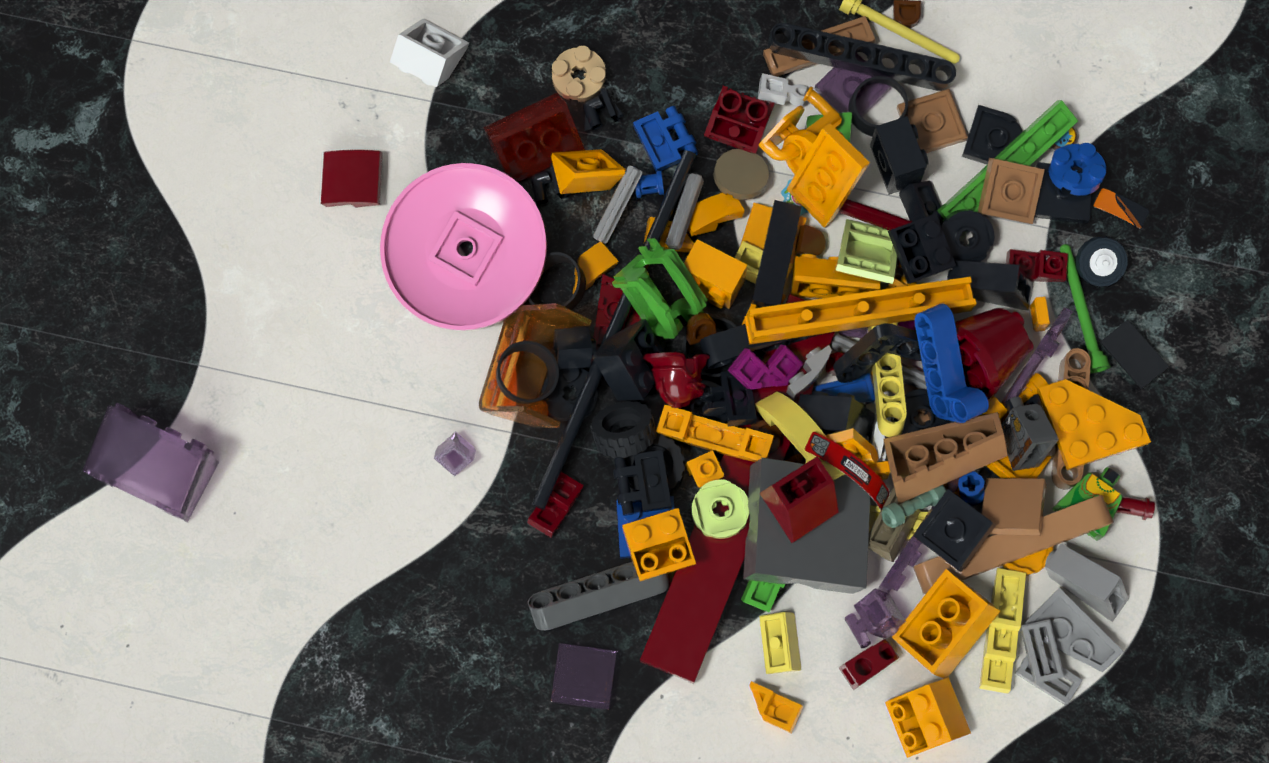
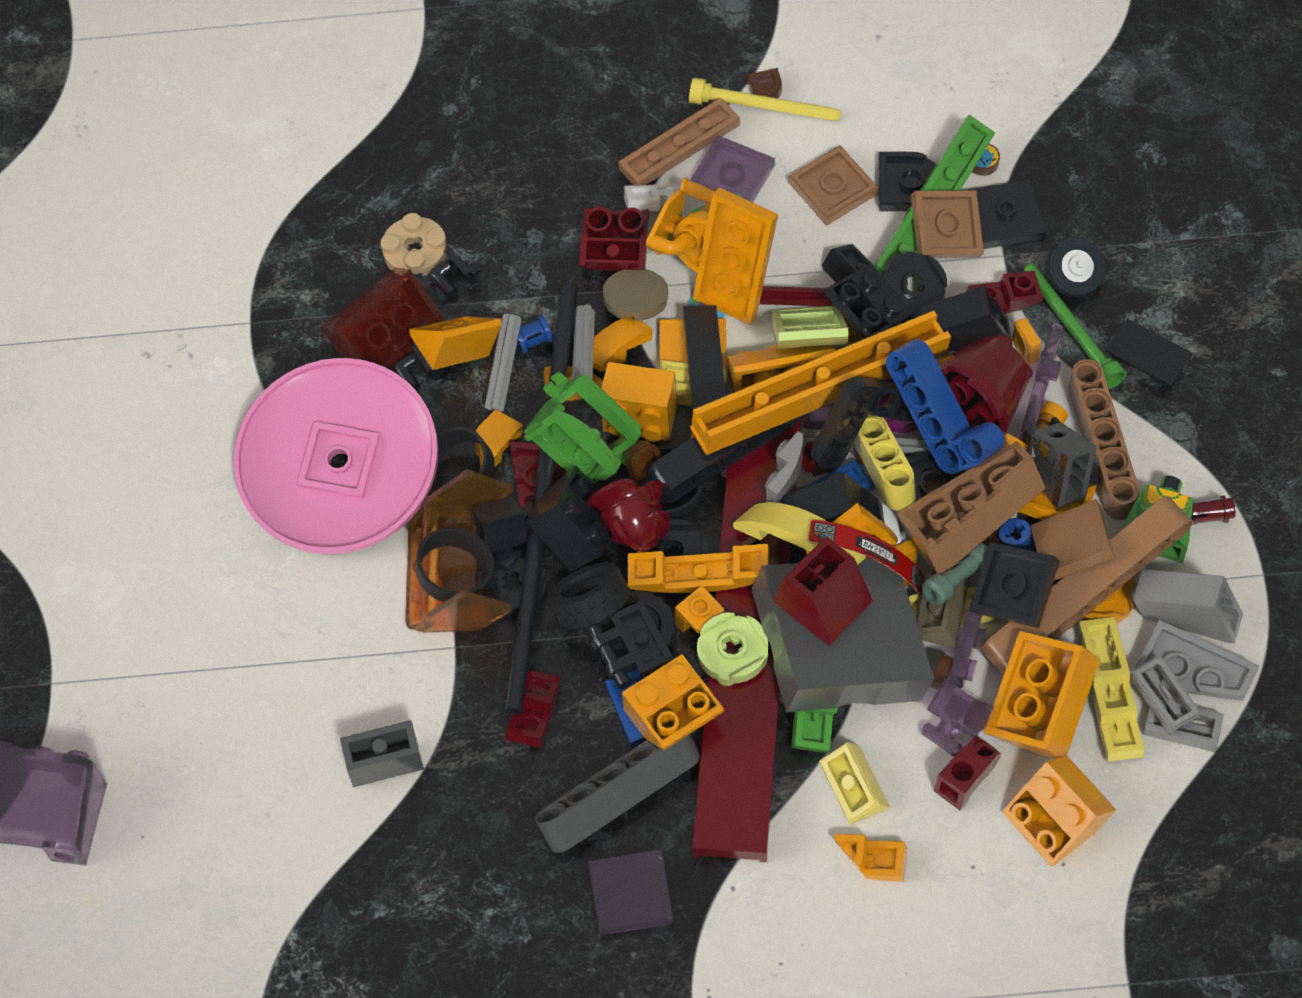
camera: 15 degrees left, 15 degrees down
(351, 178) = (180, 425): dark red slope -> none
(428, 52) = (231, 270): white slope -> none
(428, 509) = (381, 753): none -> dark grey brick
(454, 453) = (394, 688): clear purple slope -> none
(657, 141) = (528, 288): blue plate -> none
(737, 402) = (704, 523): black hinge -> none
(776, 372) = (724, 488): magenta tile -> none
(810, 241) = (737, 339): reddish brown tile -> none
(861, 124) = (778, 204): black tyre -> none
(874, 53) = (717, 144): black beam -> none
(876, 575) = (942, 670): none -> reddish brown tile
(898, 154) = (807, 220): black brick -> none
(1079, 155) = (1000, 179): blue plate -> none
(1089, 424) = (1128, 431): light orange plate -> none
(1121, 207) = (1077, 211): sticker -> none

